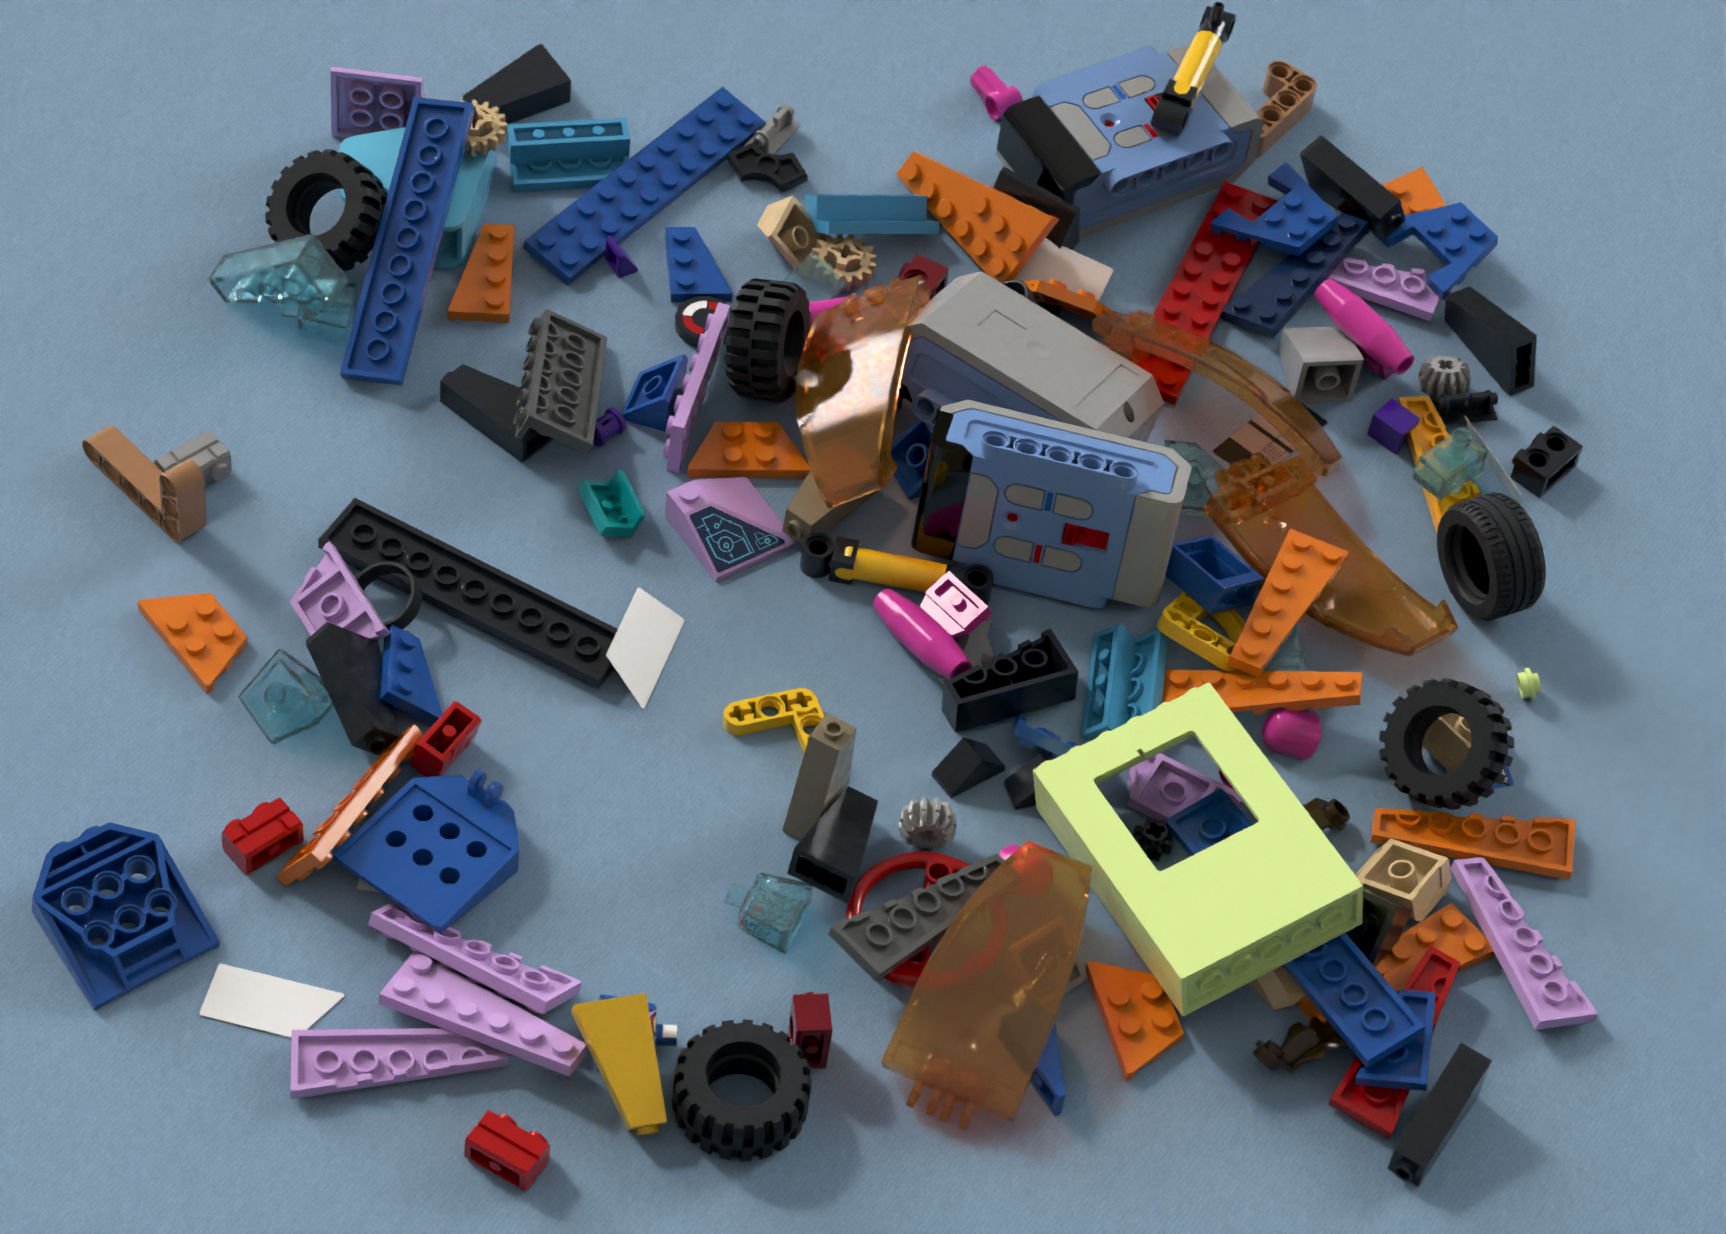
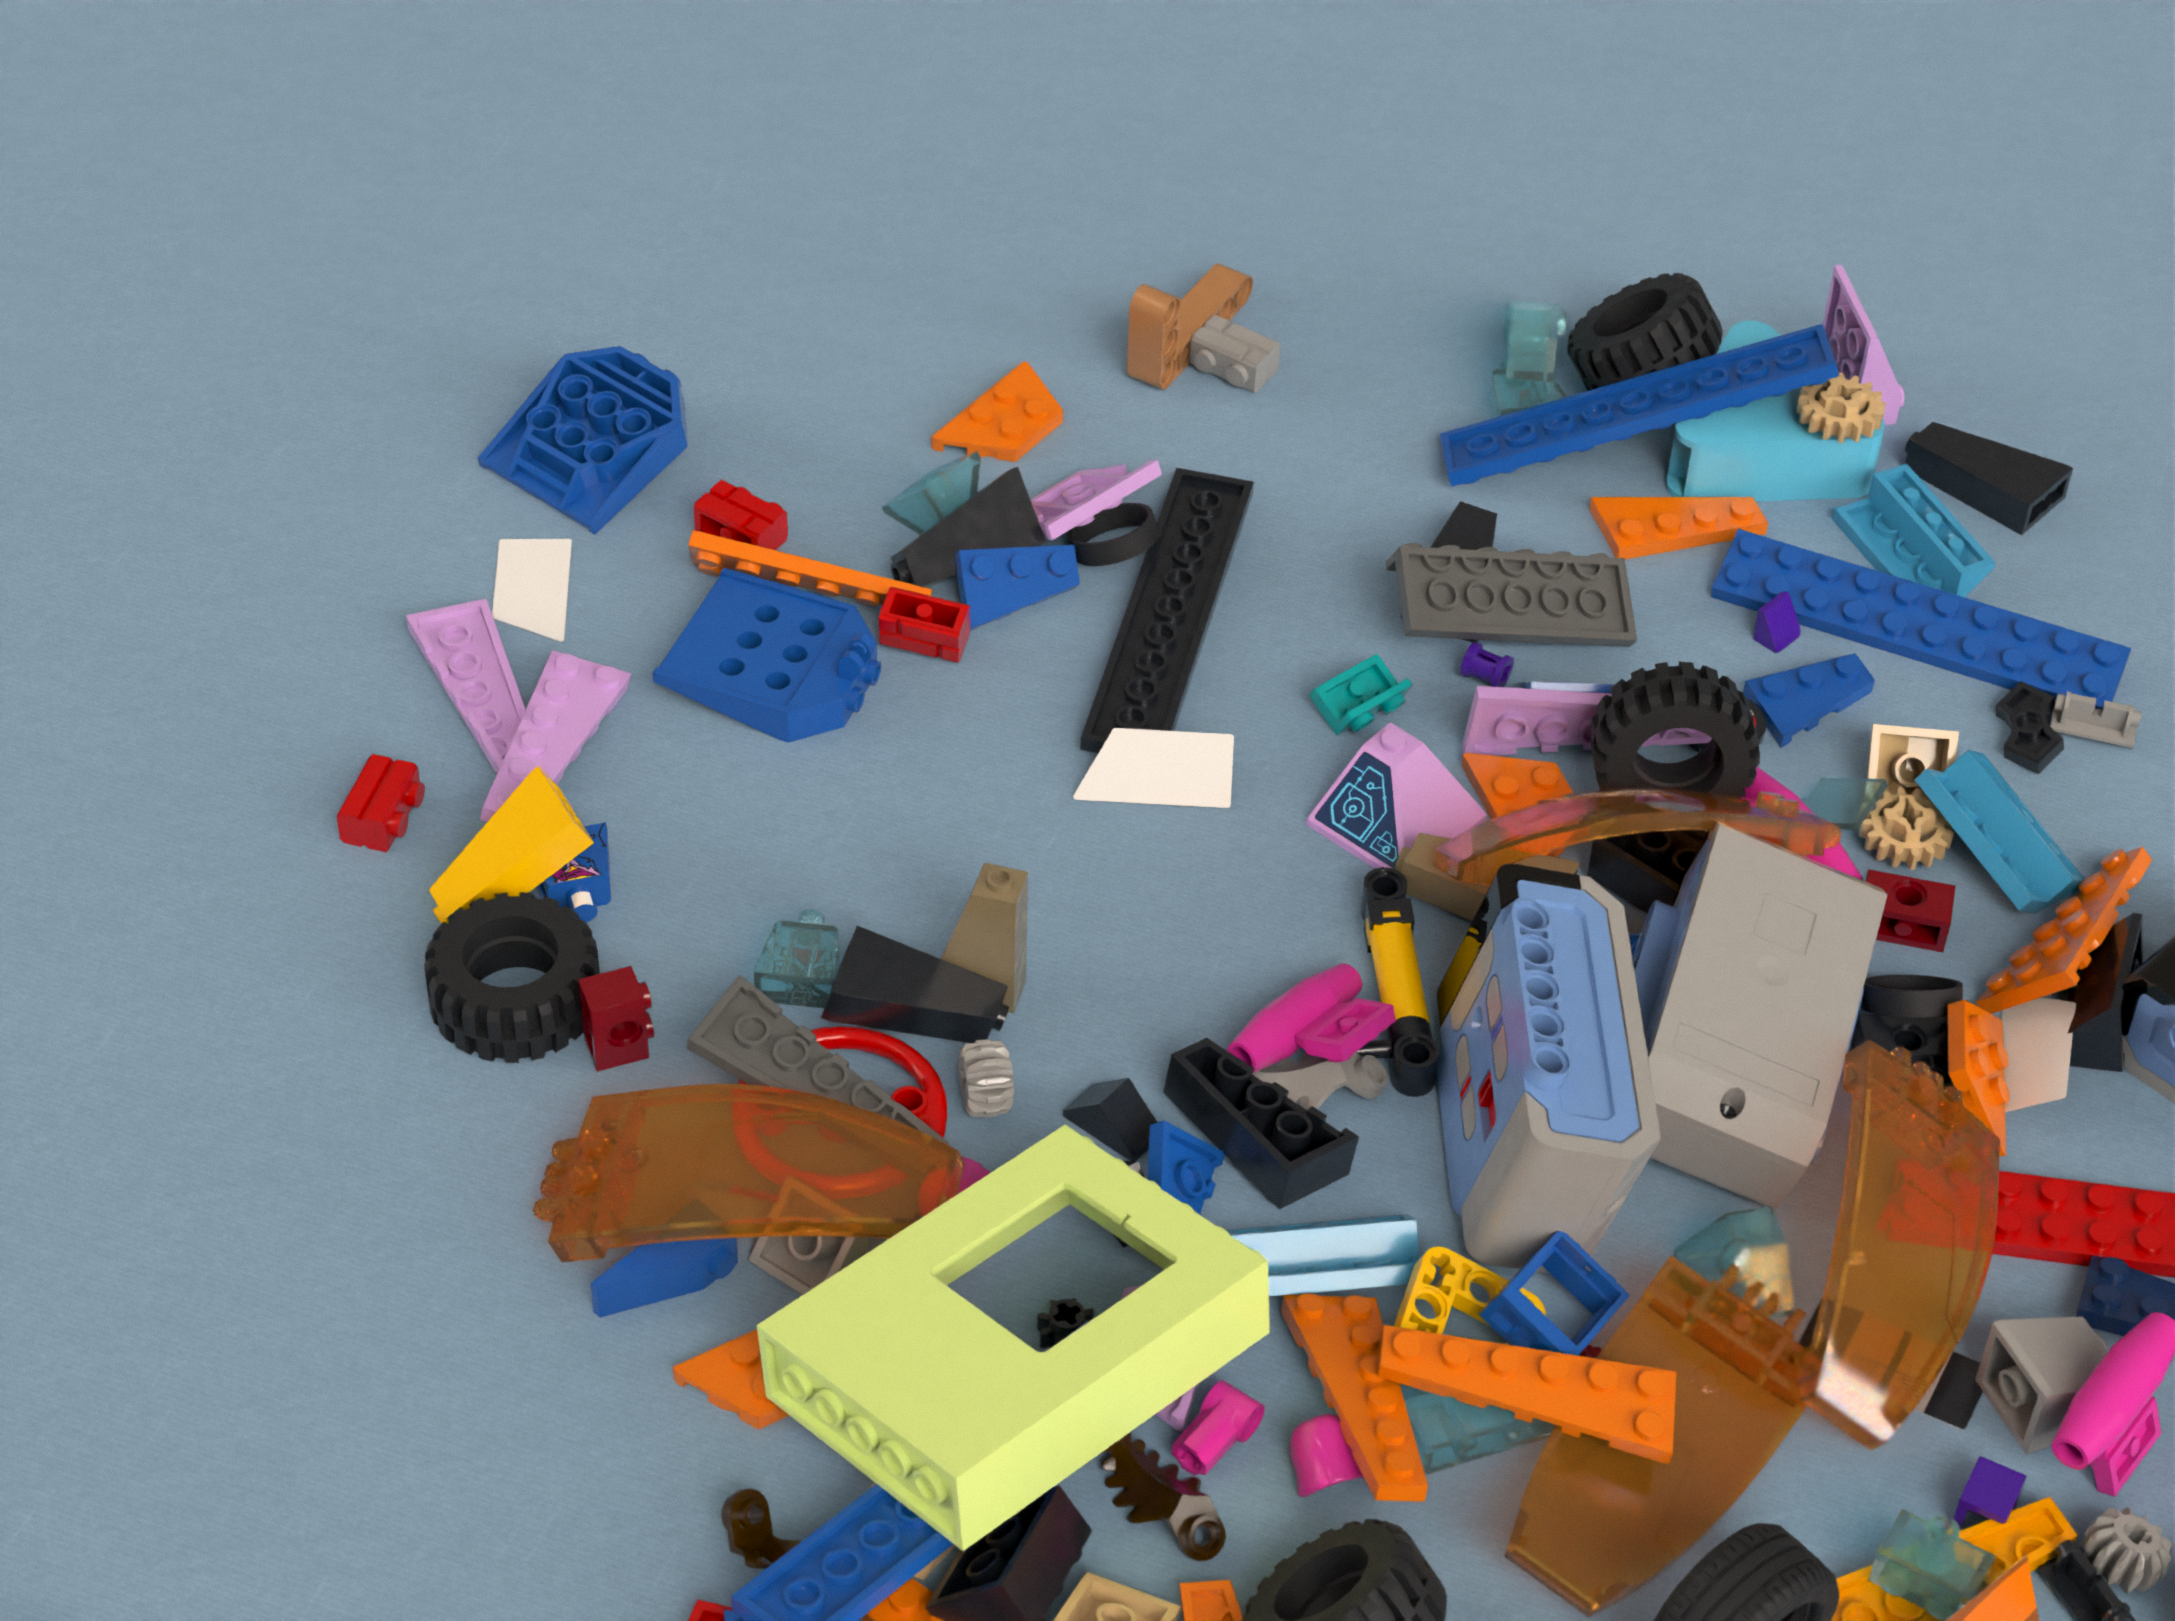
camera: 80 degrees right, 5 degrees down
(536, 989) = (621, 739): lavender wing -> none
(797, 716) = (1115, 936): yellow beam -> none

